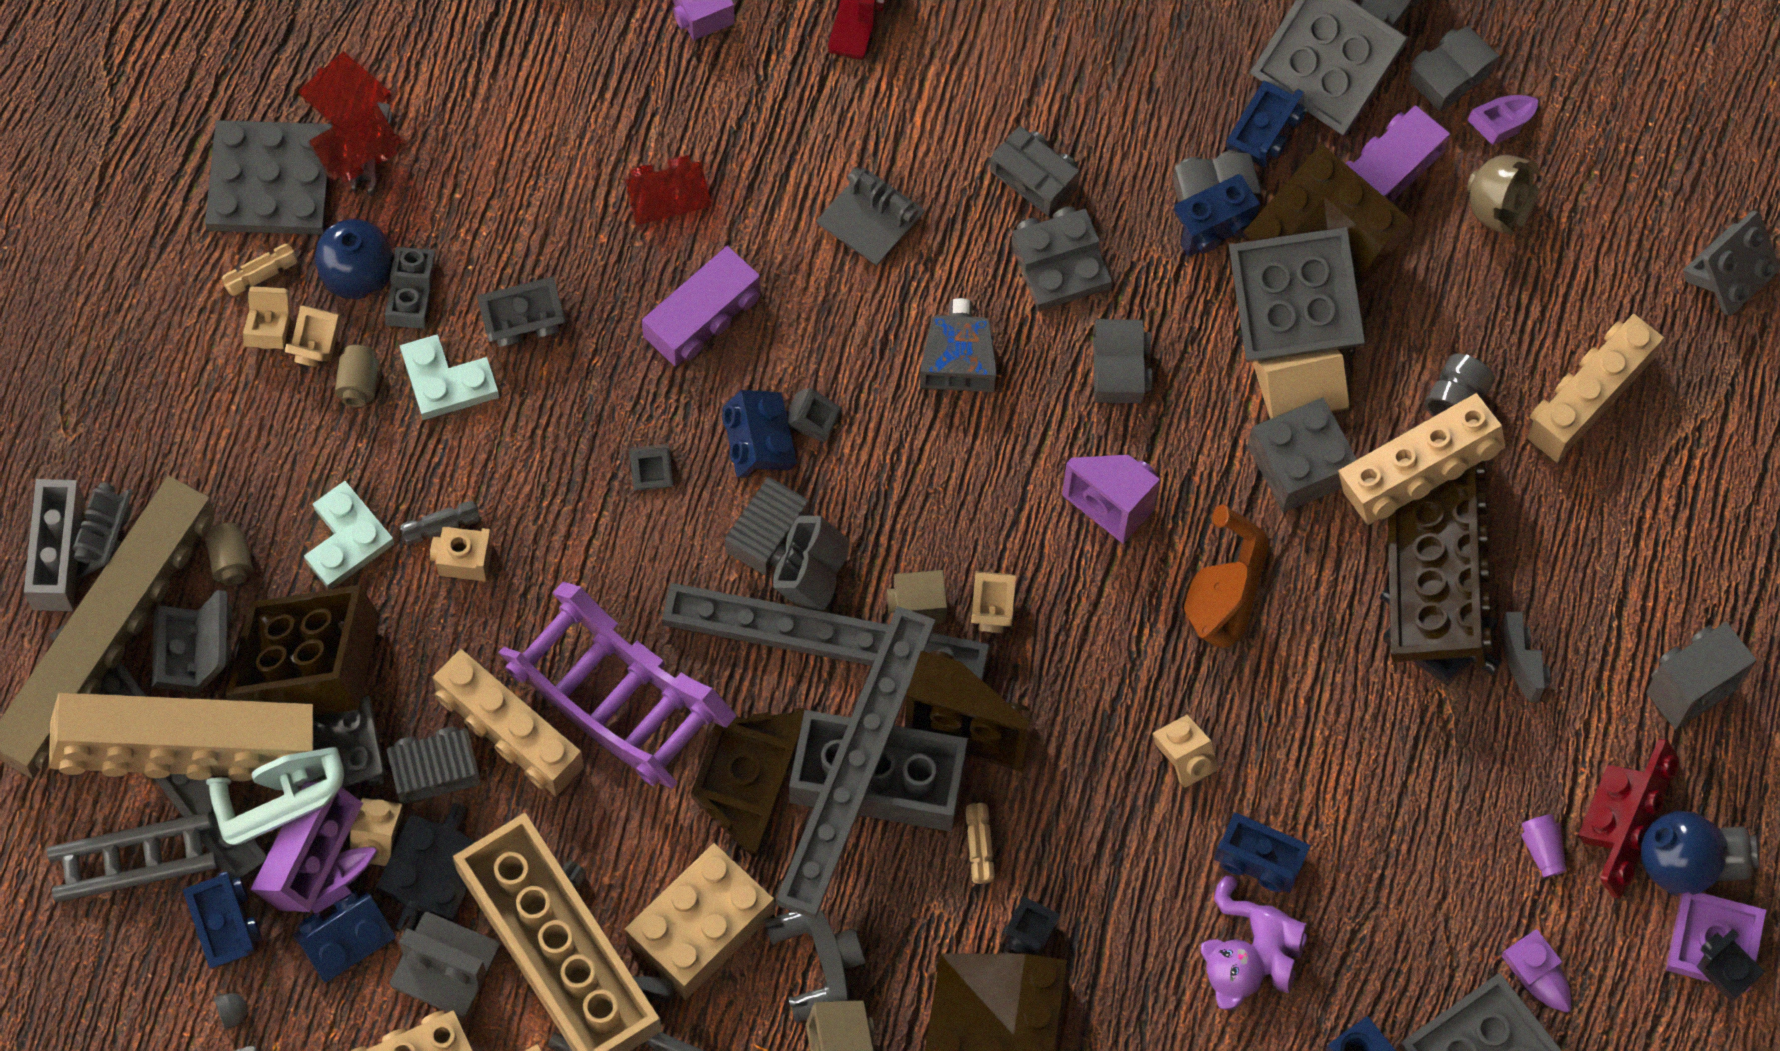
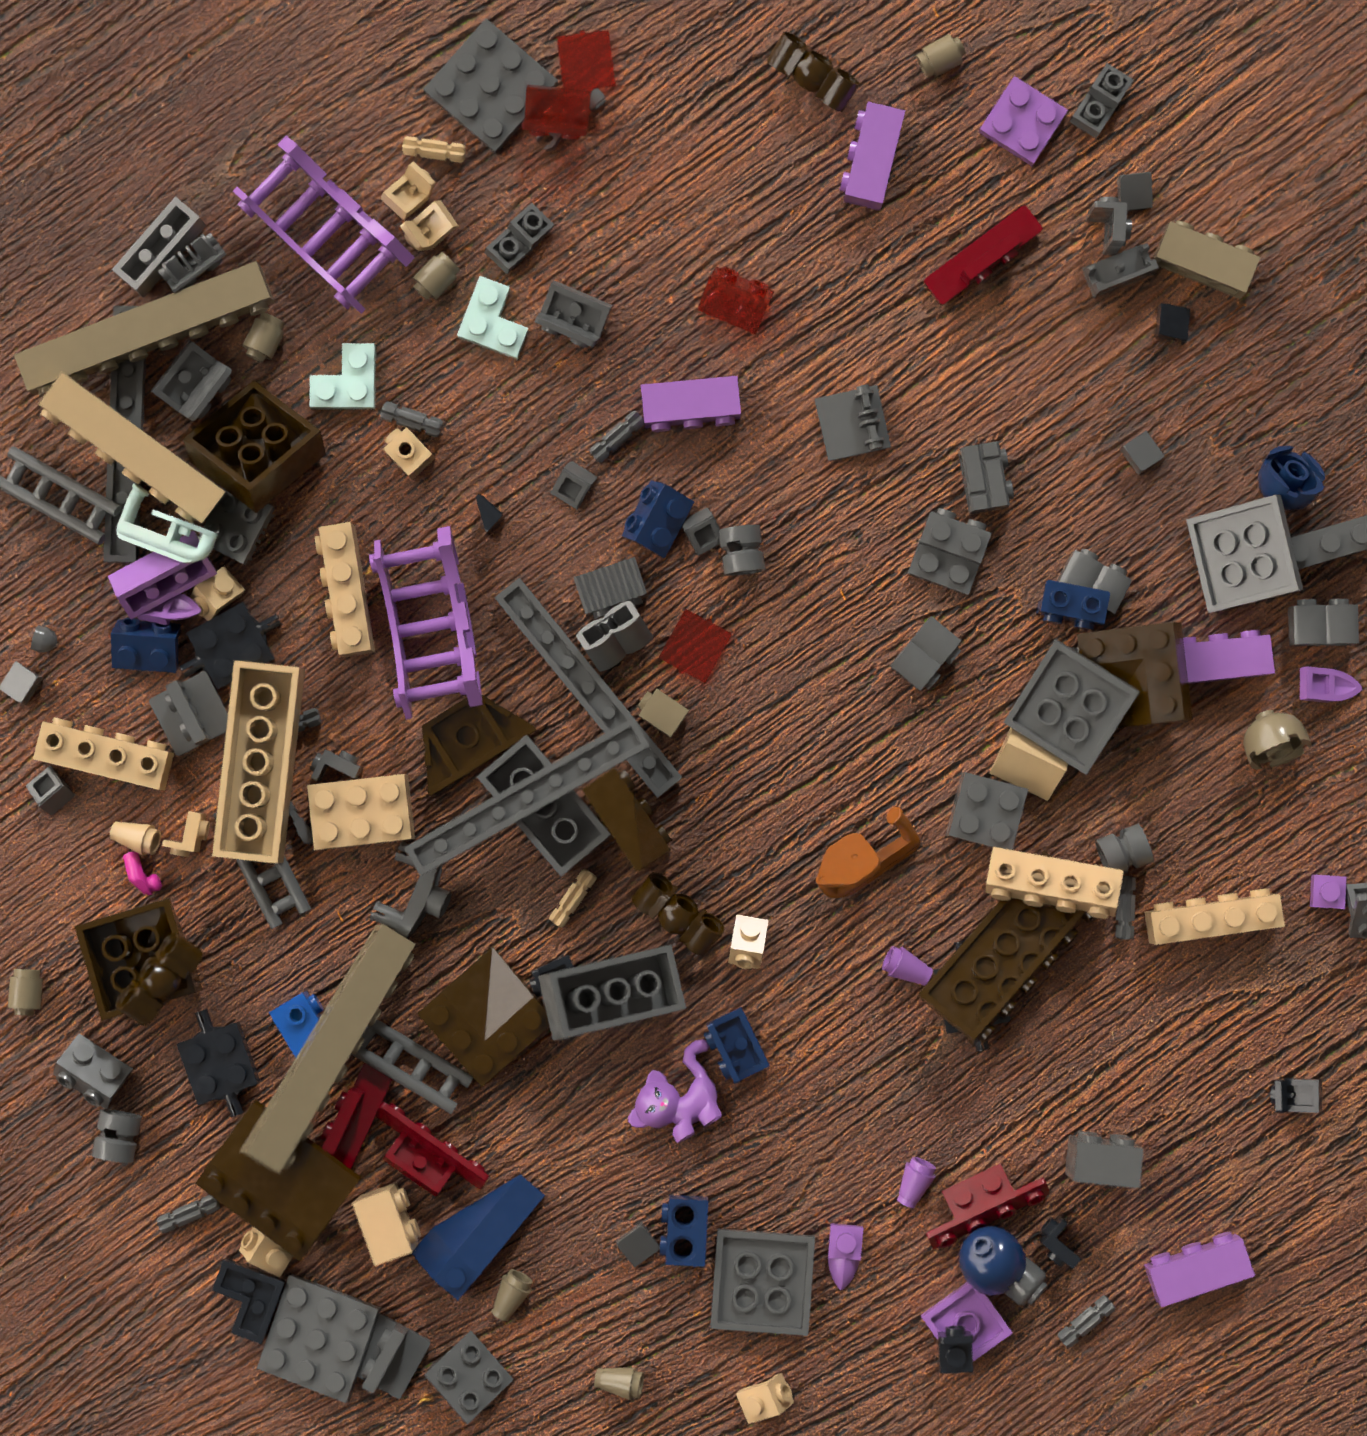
camera: 45 degrees right, 20 degrees up
(217, 378) = (345, 211): none -> medium lavender fence
(222, 919) = (79, 580): dark blue bracket -> none
(354, 258) = (498, 190): dark blue cylinder -> none
(433, 765) = (281, 581): dark grey brick -> none
(590, 548) = (489, 513): none -> black slope
(635, 893) = (343, 762): none -> dark grey bracket
(656, 391) = (617, 436): none -> dark grey axle
(861, 393) = (741, 561): none -> dark grey wheel
(894, 523) = (695, 646): none -> clear red piece
(959, 351) = (829, 564): dark grey torso -> none
(993, 601) = (708, 751): tan bracket -> none
(1096, 772) = (678, 914): none -> dark brown piece
(1098, 886) = (612, 992): none -> dark grey brick
(1112, 491) = (842, 744): medium lavender slope -> none
(1157, 49) = (1141, 452): none -> dark grey slope
(1266, 123) = (1163, 565): dark blue bracket -> none
(1355, 653) = (905, 966): none -> medium lavender cone
(1514, 453) = (1126, 909): none -> dark grey axle
(1524, 663) = (1005, 1066): dark grey slope -> none
(1672, 290) = (1328, 891): none -> medium lavender plate
(1735, 797) = (1058, 1251): none -> black bracket

